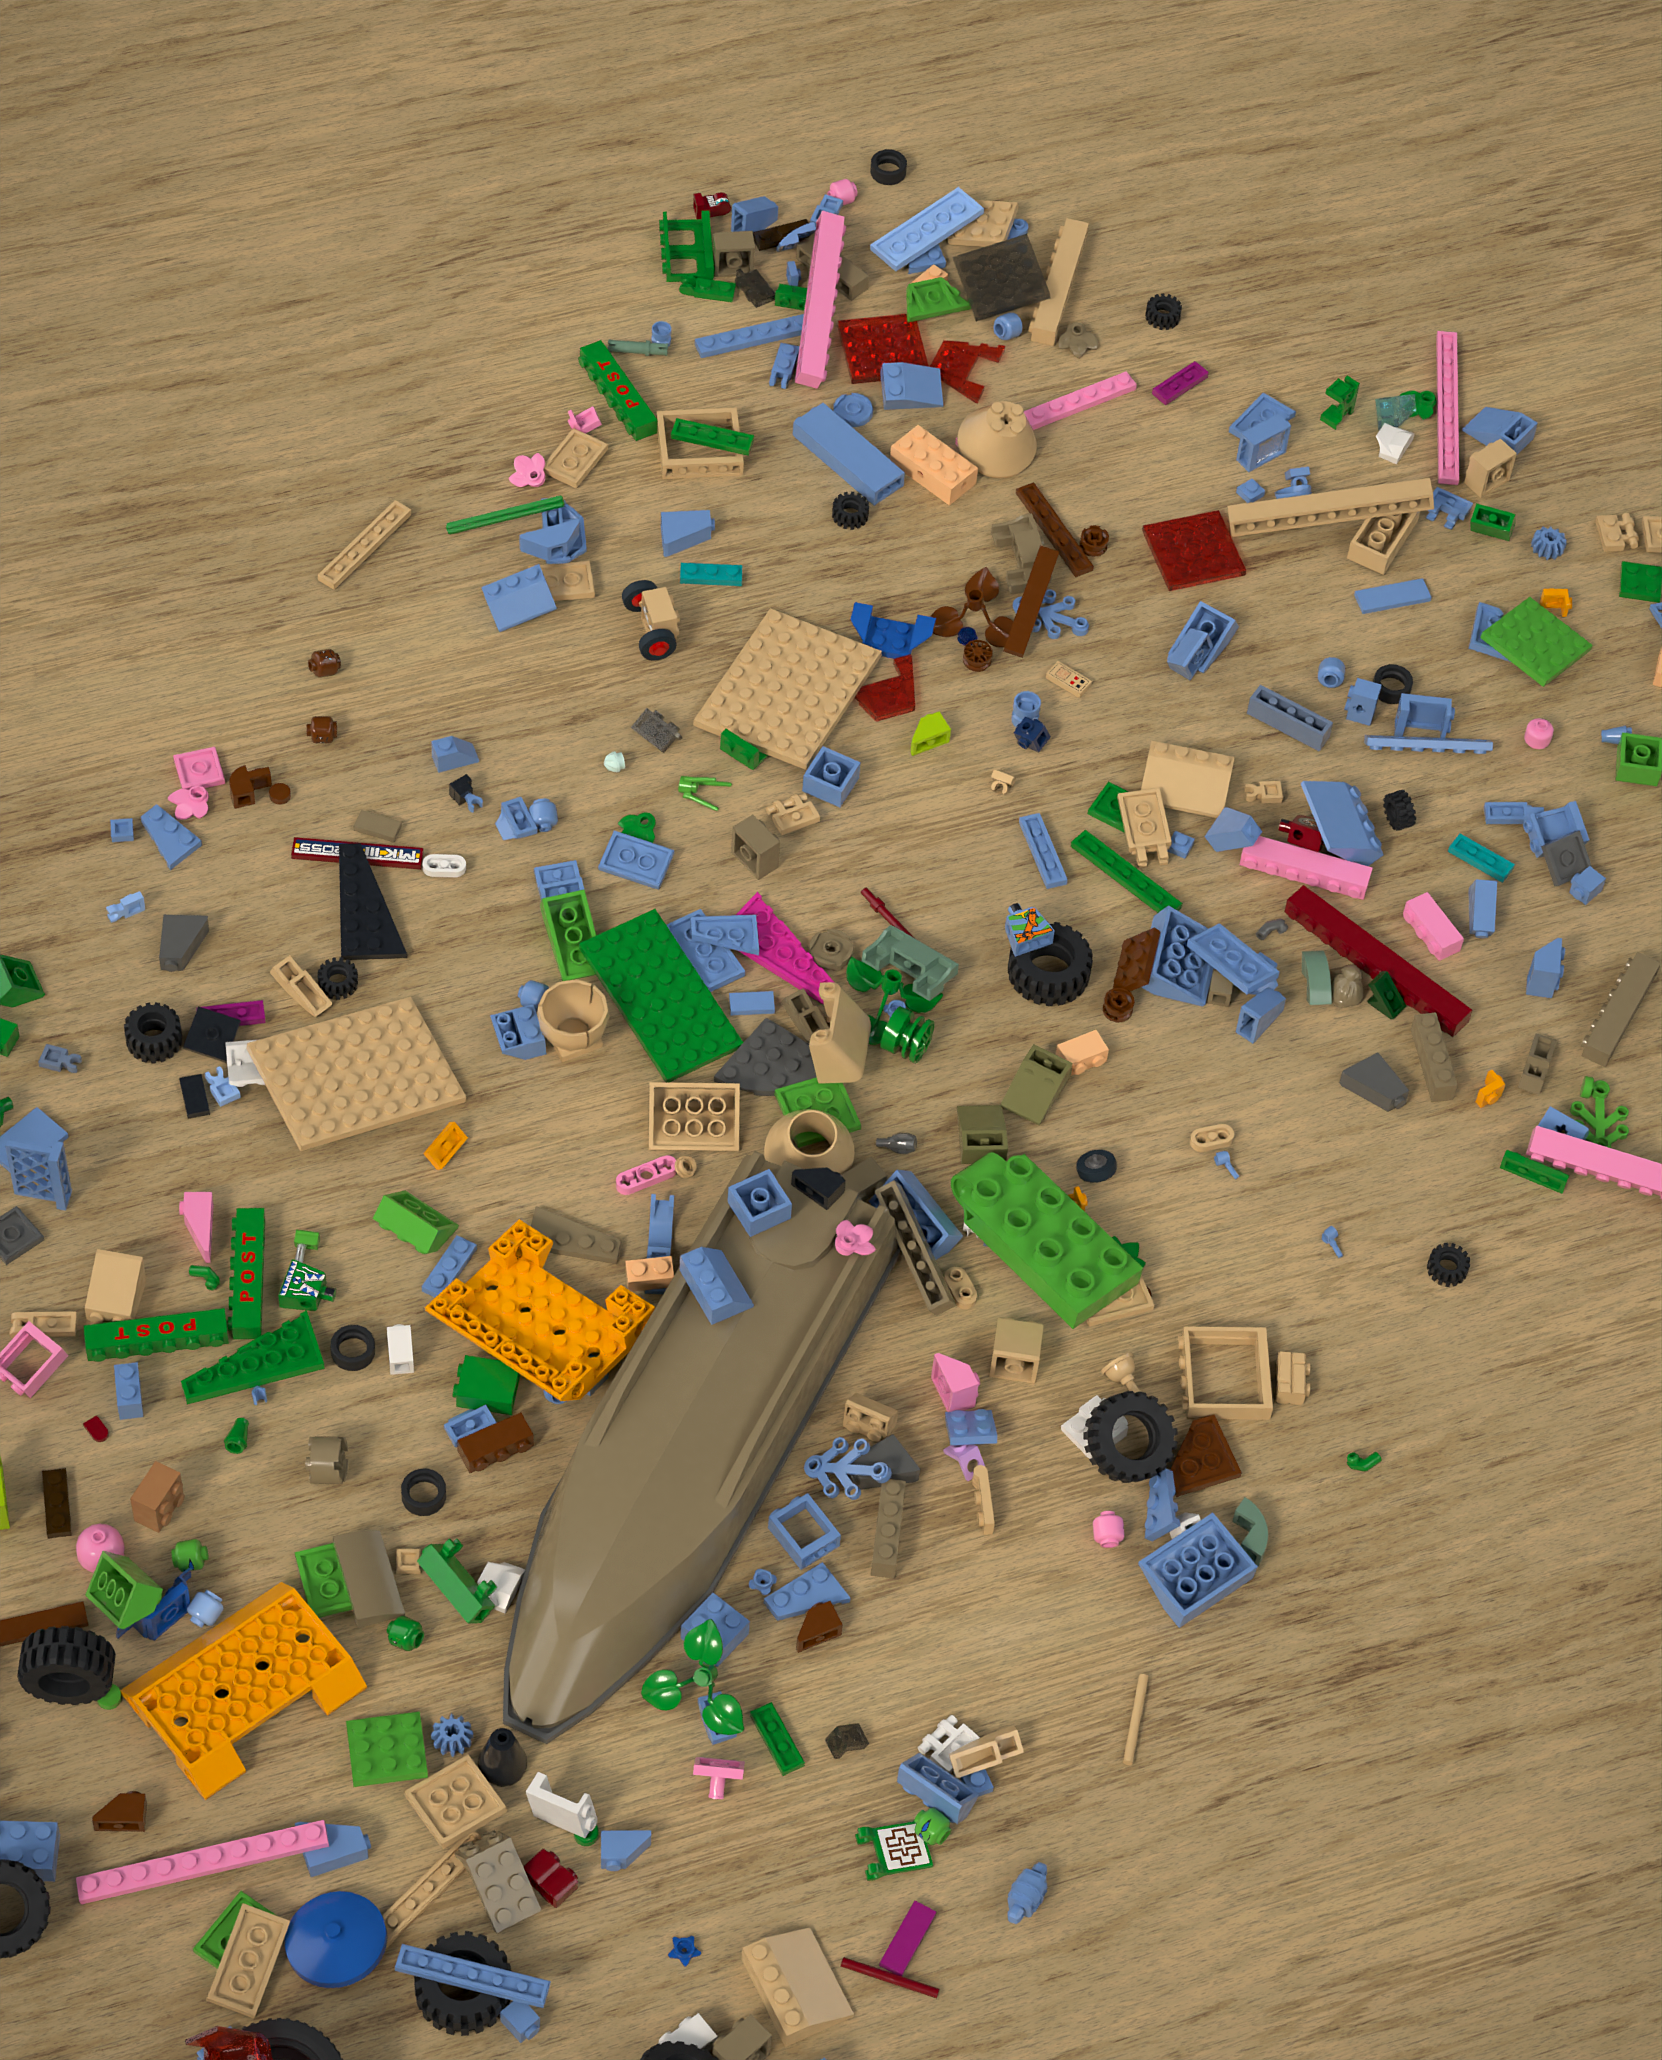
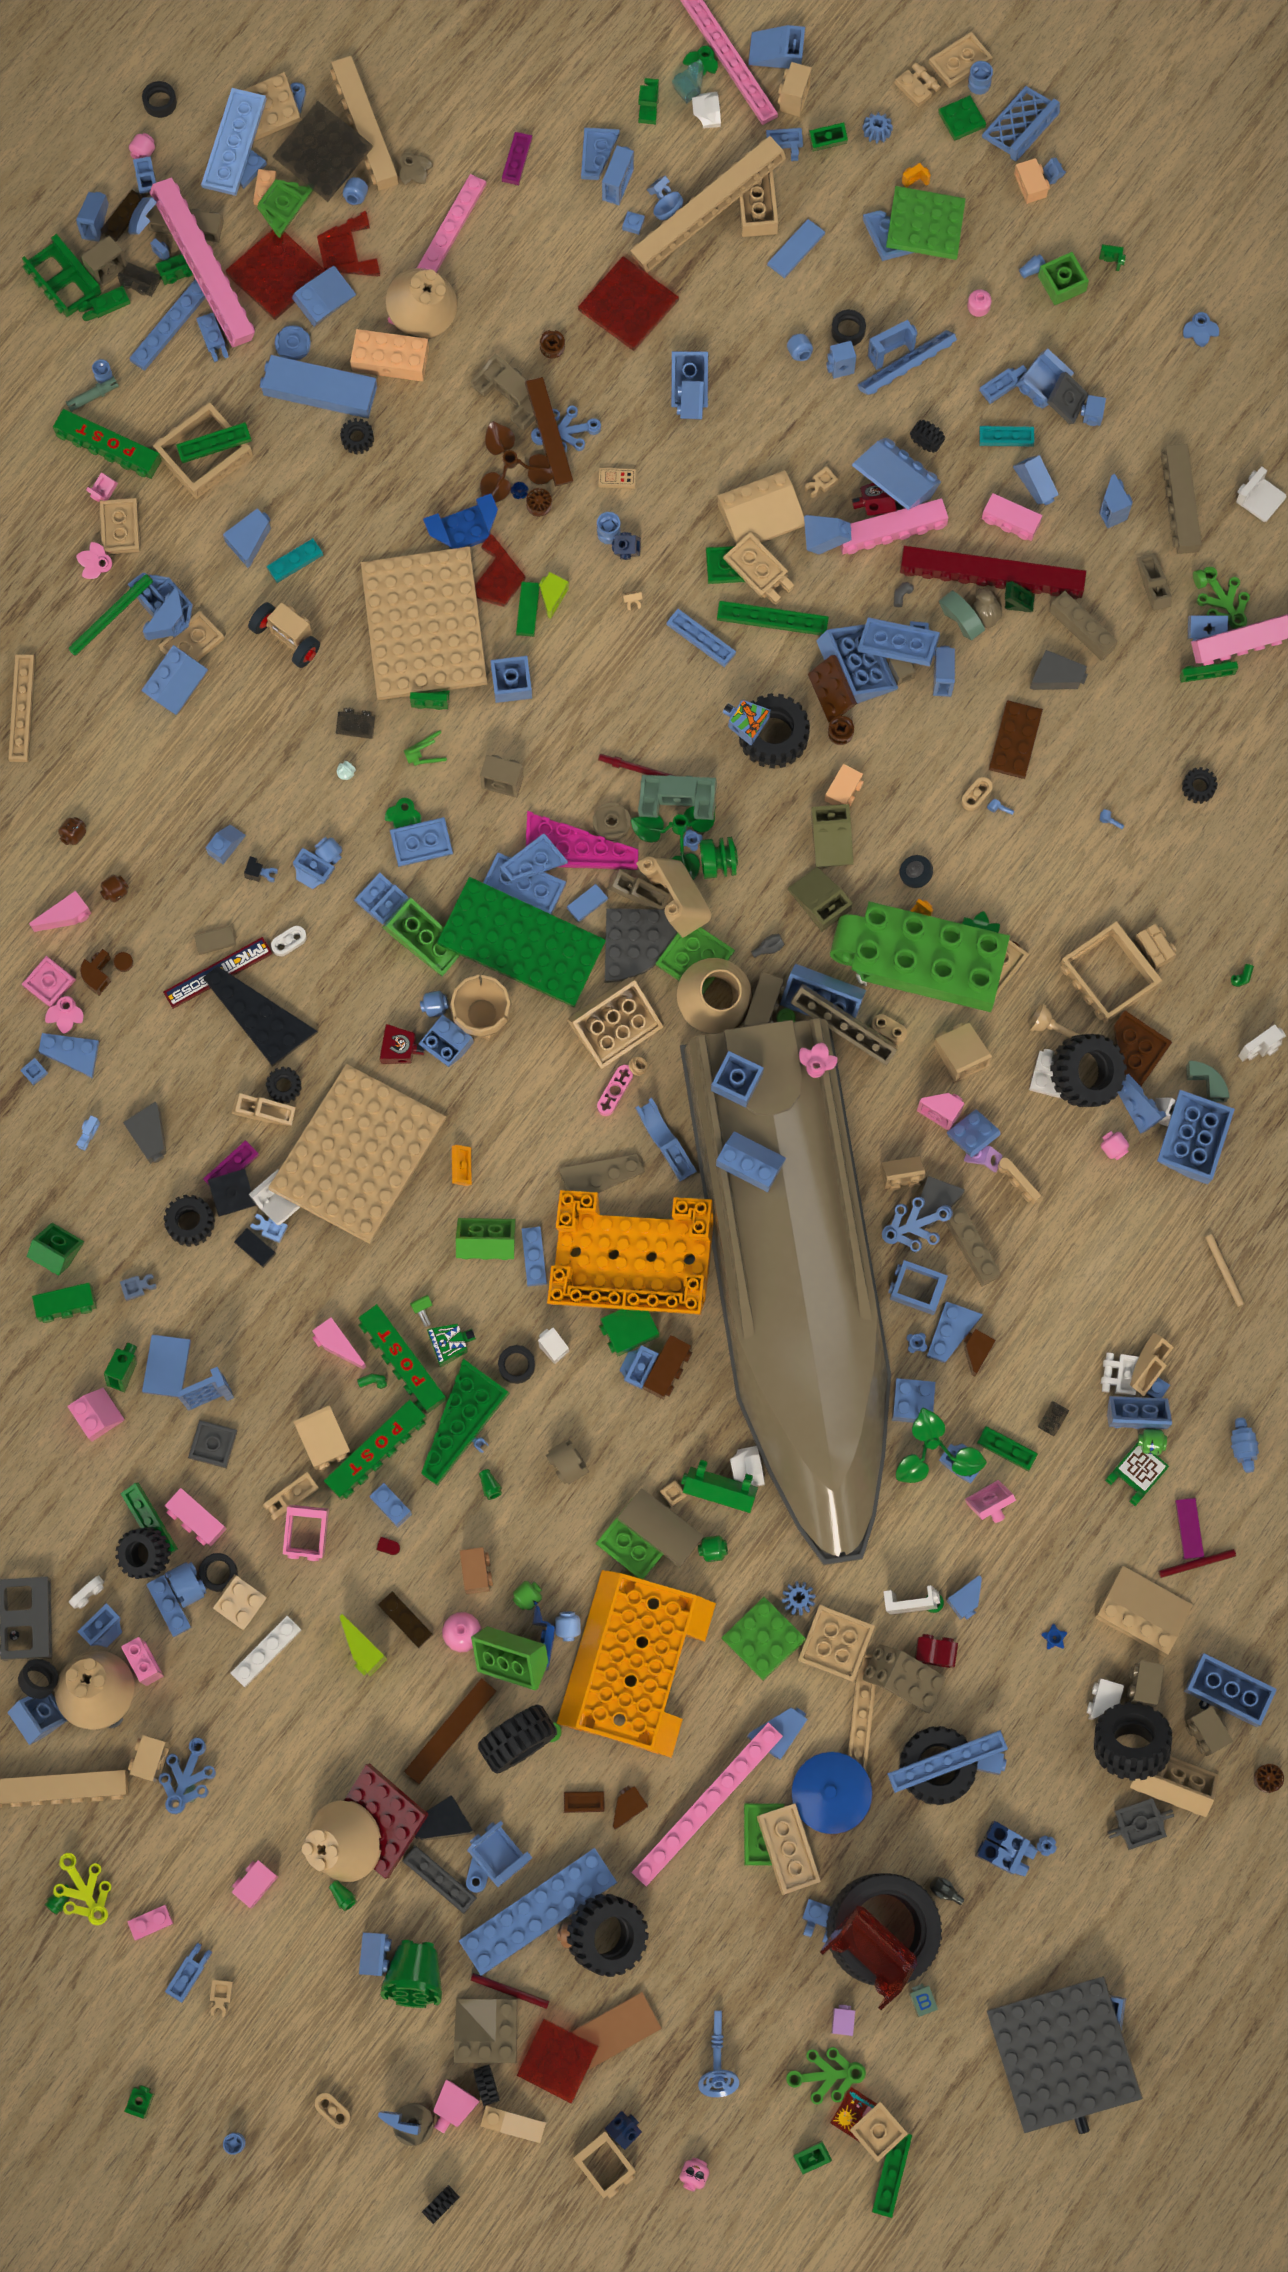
camera: 30 degrees left, 20 degrees up
(86, 1782) = (583, 1802): none -> reddish brown tile
(260, 722) = (65, 913): none -> bright pink slope
(423, 1508) = (631, 1437): black tyre -> none
(470, 1011) = (399, 1046): none -> dark red torso
(502, 1759) = (840, 1599): black cone -> none
(649, 1273) = (679, 1169): light nougat brick -> none
(716, 204) = (50, 225): dark red leg -> none
(794, 818) = (507, 730): tan plate -> none
(819, 1185) = (766, 1035): black slope -> none
(895, 735) = (528, 609): none -> green tile
(1054, 529) = (515, 352): reddish brown tile -> none
(1161, 319) = (459, 109): black tyre -> none
(1181, 844) = (792, 565): medium blue plate -> none
(1289, 718) = (798, 408): sand blue brick -> none
(1289, 1116) = (1015, 739): none -> reddish brown plate
(1336, 1527) = (1264, 1044): none -> white plate
(1491, 1092) = (1137, 618): light orange bracket -> none

